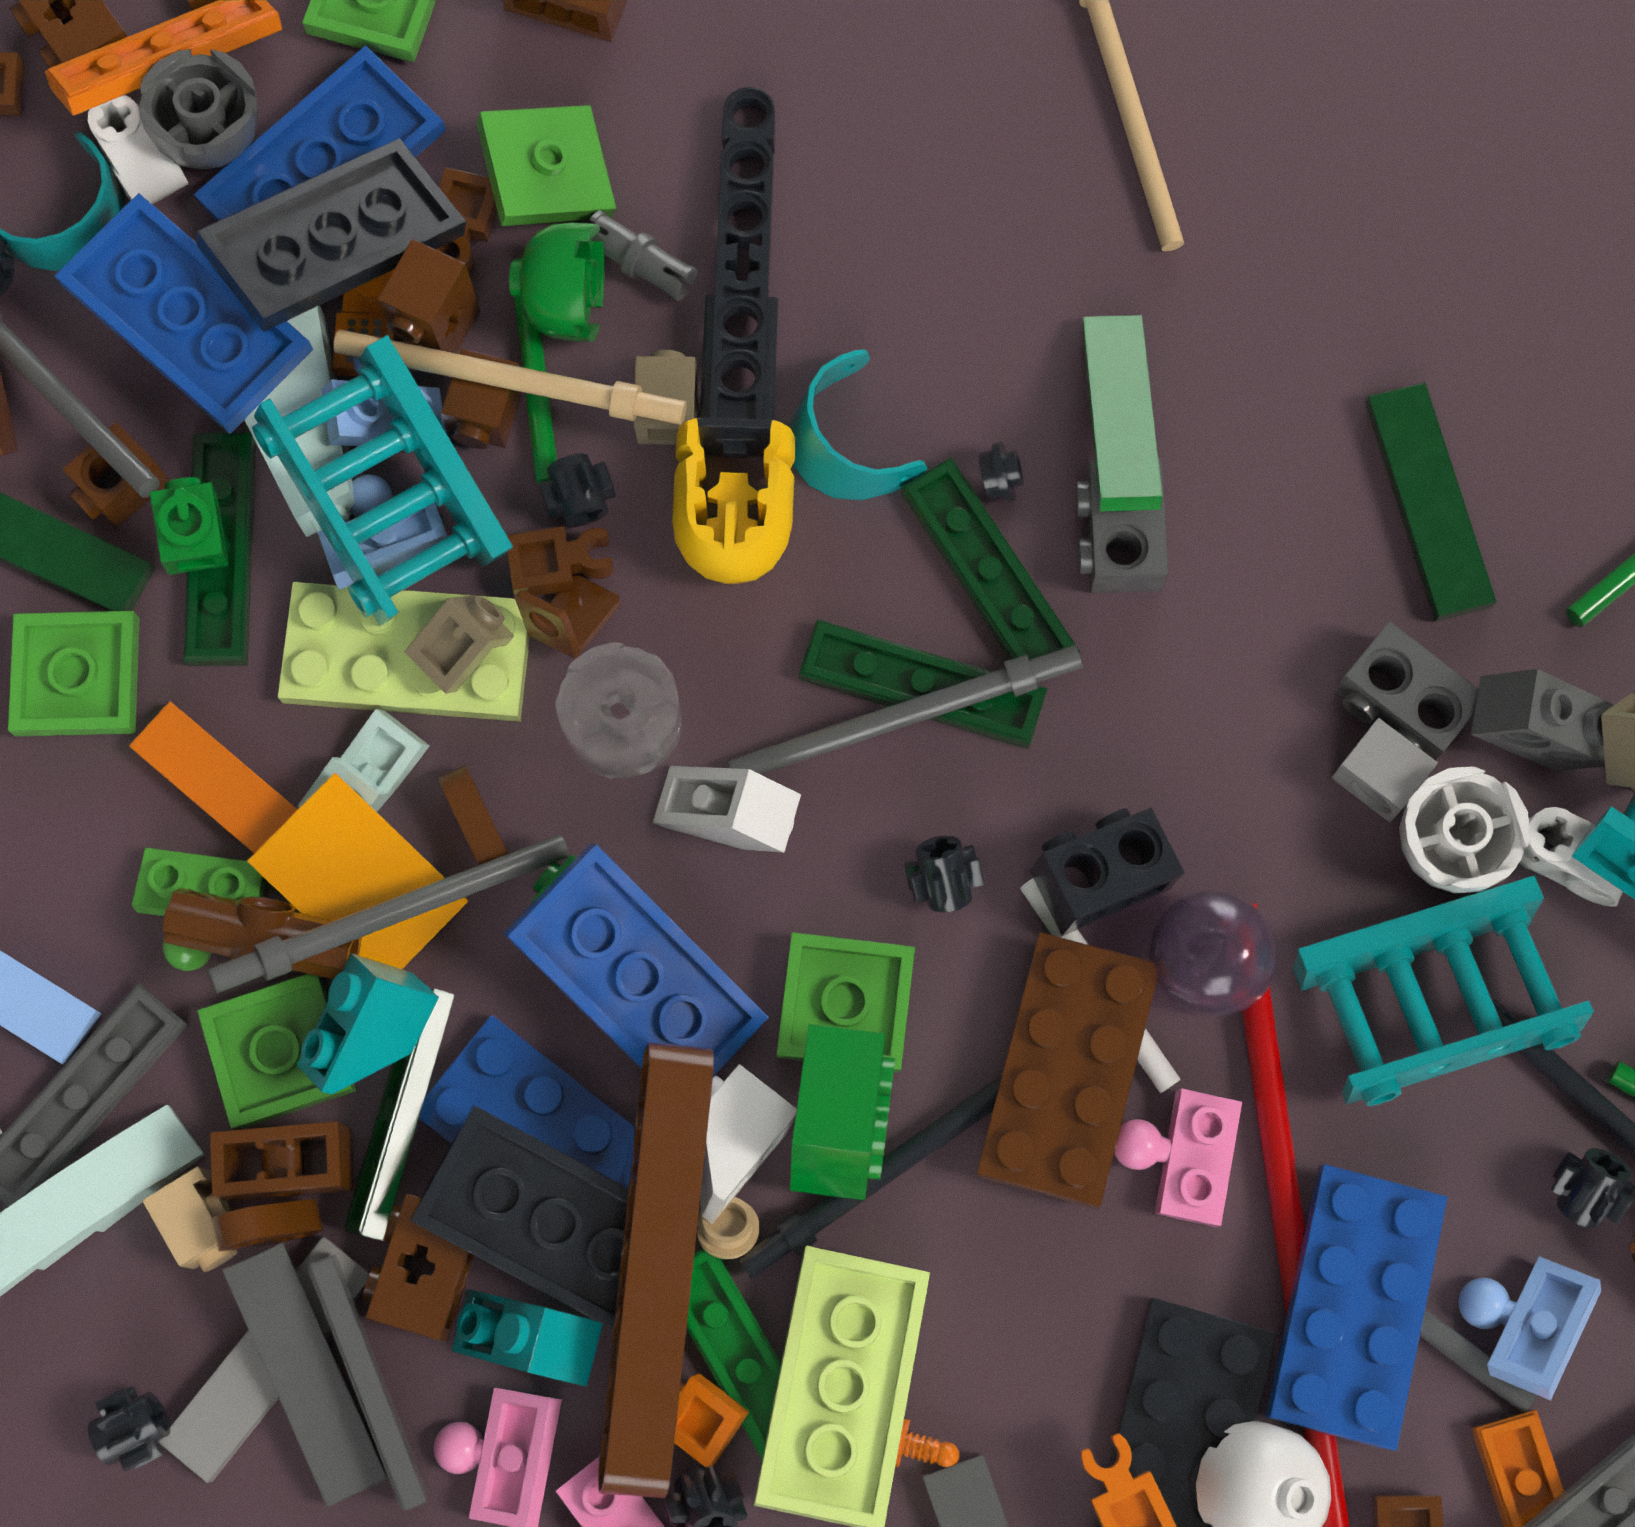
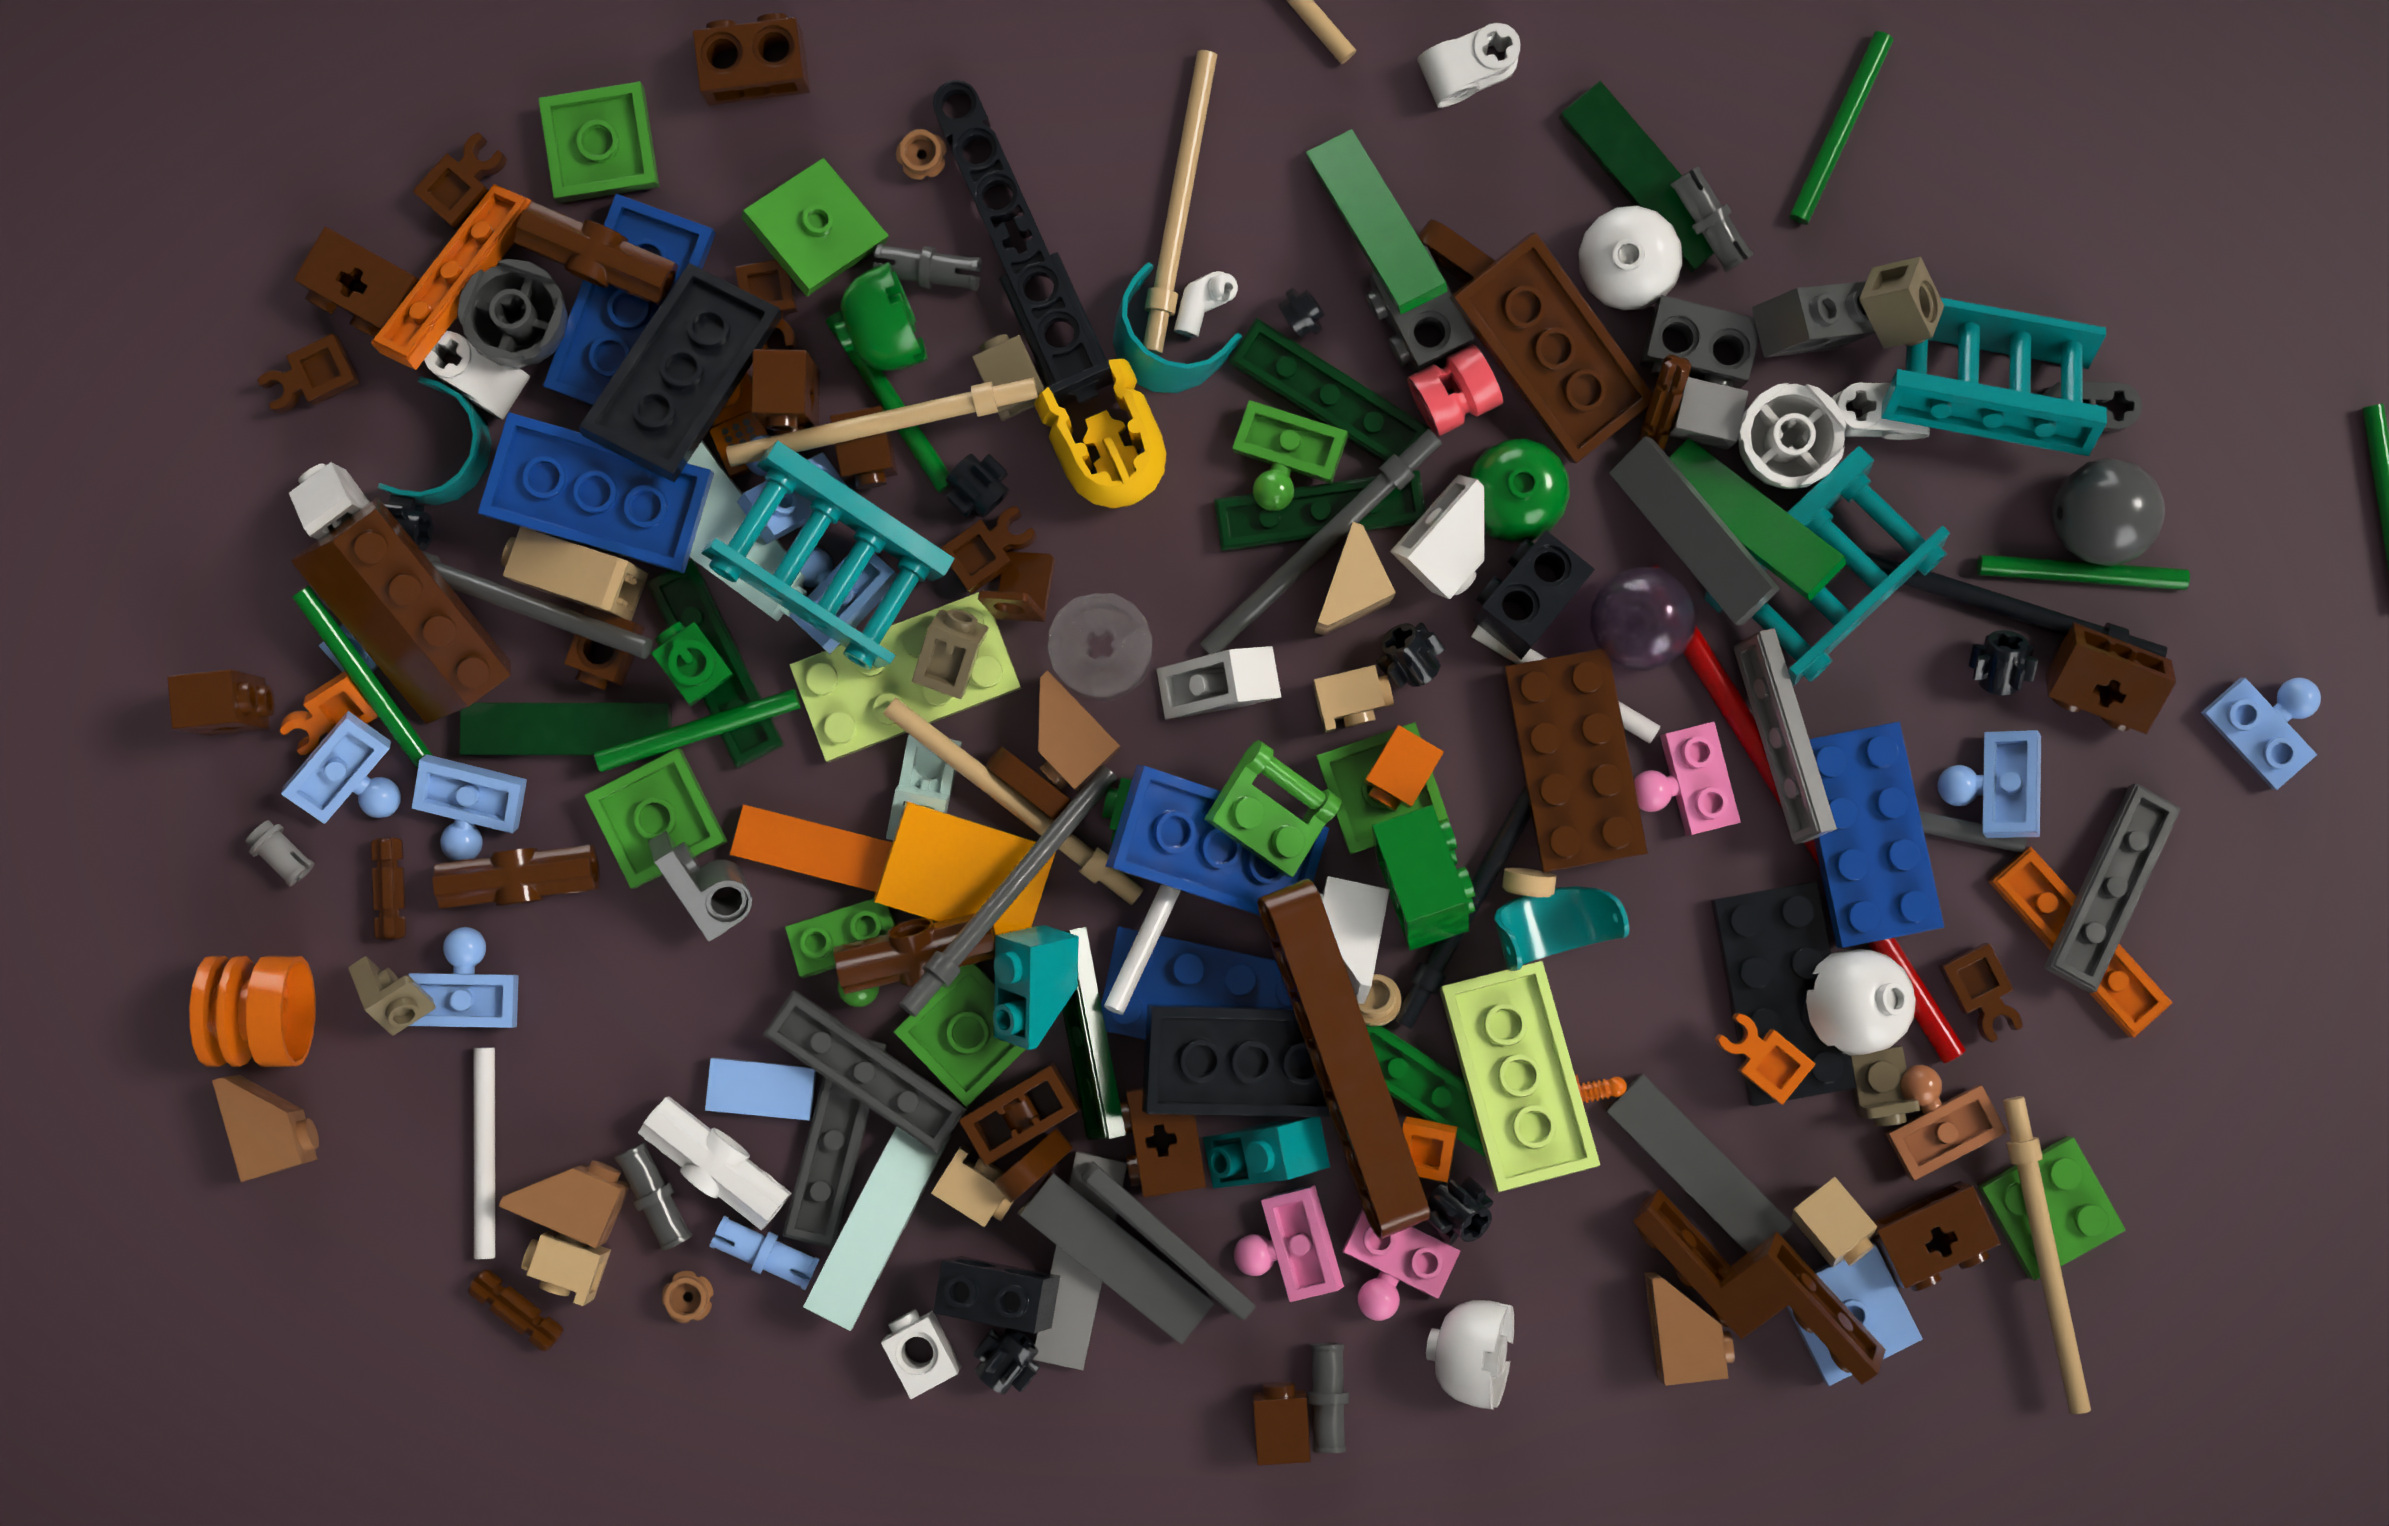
camera: 25 degrees left, 10 degrees up
(63, 1394) = (914, 1375): none -> white brick
(67, 759) = (697, 885): none -> dark grey plate
(126, 389) = (574, 572): none -> tan slope
(145, 1038) = (865, 1071): none -> dark grey tile
(155, 1348) = (996, 1294): none -> black brick
(163, 602) = (697, 730): none -> green bar
(310, 86) = (595, 253): none -> reddish brown piece
(447, 827) = (1090, 860): none -> tan bar
(501, 1048) = (1141, 949): none -> white bar
(541, 789) = (1070, 737): none -> medium nougat slope
(689, 131) = (918, 141): none -> medium nougat plate
(696, 972) = (1264, 824): none -> bright green plate
(859, 889) = (1351, 697): none -> tan brick
(863, 393) = (1161, 298): none -> tan bar
(874, 985) = (1402, 769): none -> orange brick
(904, 412) = (1201, 297): none -> white arm
(915, 771) = (1357, 586): none -> tan slope
(919, 598) = (1288, 445): none -> bright green plate
(956, 1179) = (1529, 882): none -> tan tile
(964, 1239) = (1550, 925): none -> teal piece
(1040, 772) = (1447, 539): none -> white slope
(1123, 622) = (1473, 387): none -> coral wheel
(1142, 757) = (1522, 489): none -> green cylinder
(1195, 495) = (1453, 251): none -> reddish brown beam
(1248, 624) = (1552, 347): none -> reddish brown plate
(1291, 304) = (1462, 65): none -> white piece
(1310, 1153) = (1784, 737): none -> light grey tile
(1312, 883) = (1694, 531): none -> dark grey tile
(1342, 735) = (1665, 399): none -> reddish brown axle
(1374, 572) = (1630, 258): none -> white cylinder
(1379, 899) = (1760, 524): none -> green tile
(1479, 569) = (1711, 219): none -> dark grey pin

